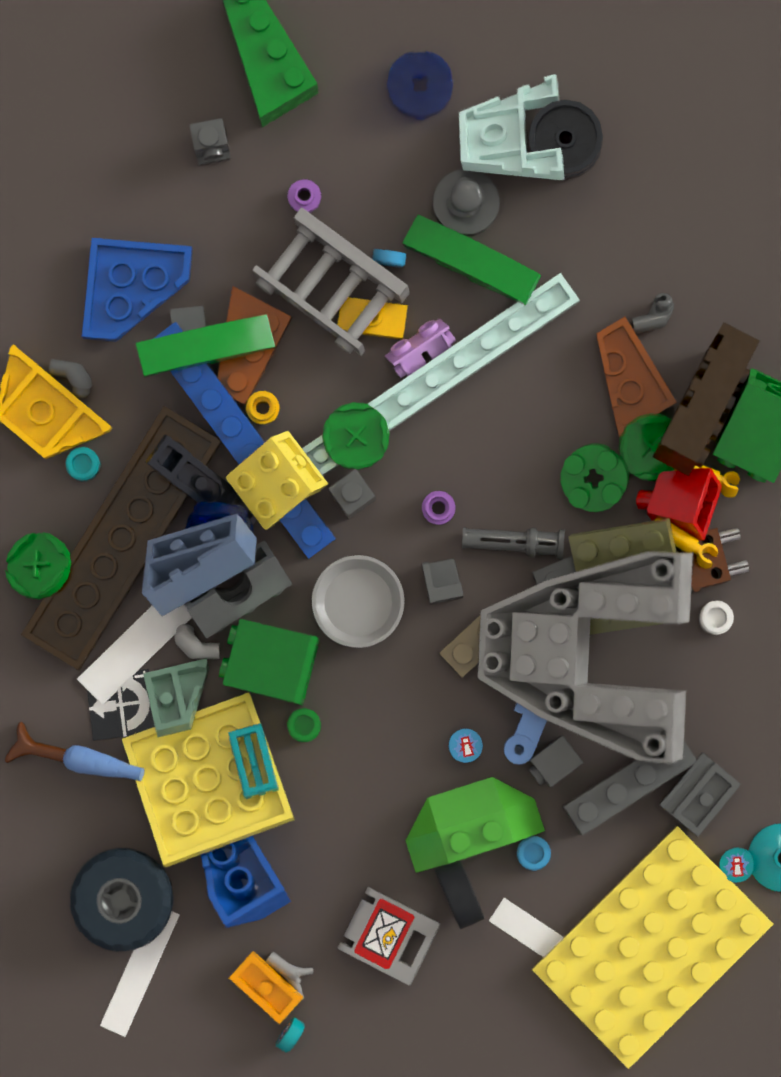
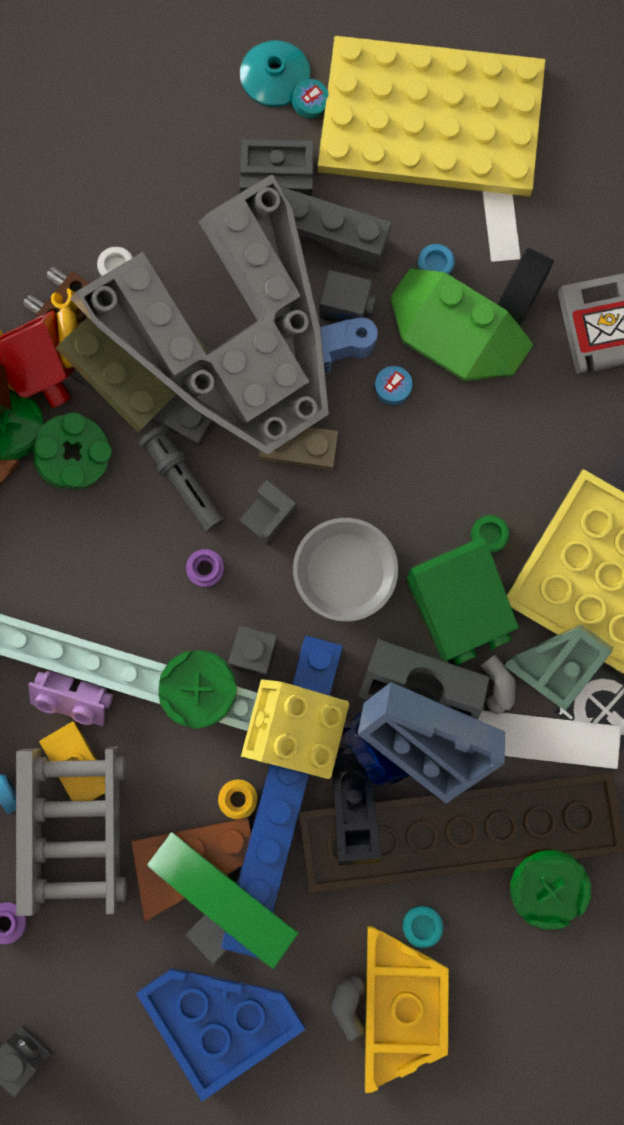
camera: 130 degrees left, 5 degrees down
(260, 788) = (576, 553): teal tile -> none

